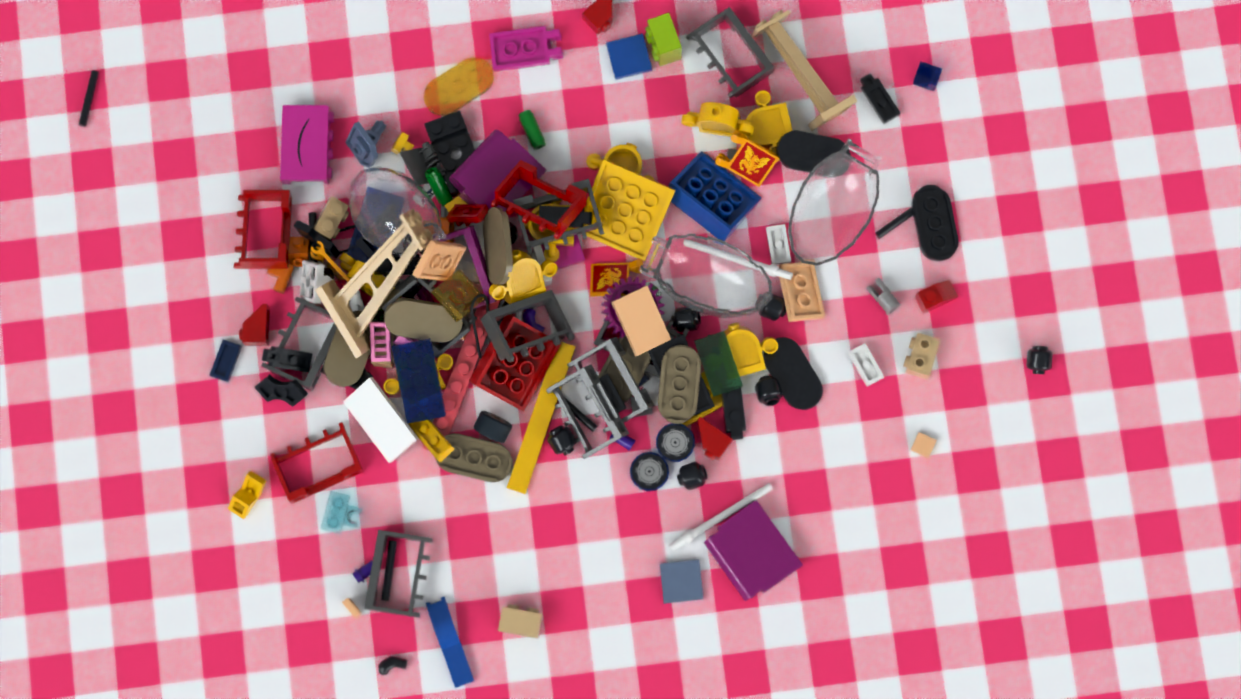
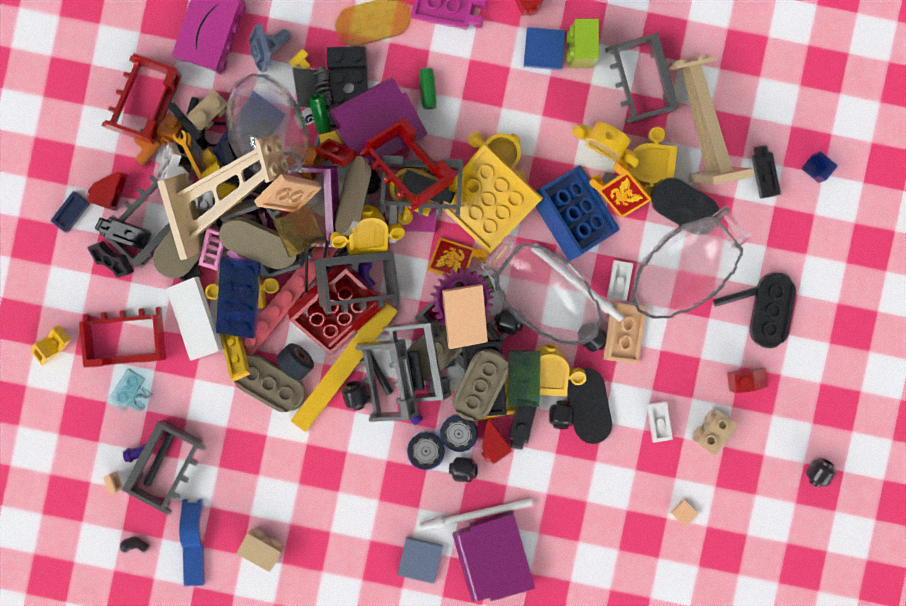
camera: 20 degrees right, 10 degrees up
(885, 299) = (701, 367): light grey hinge -> none

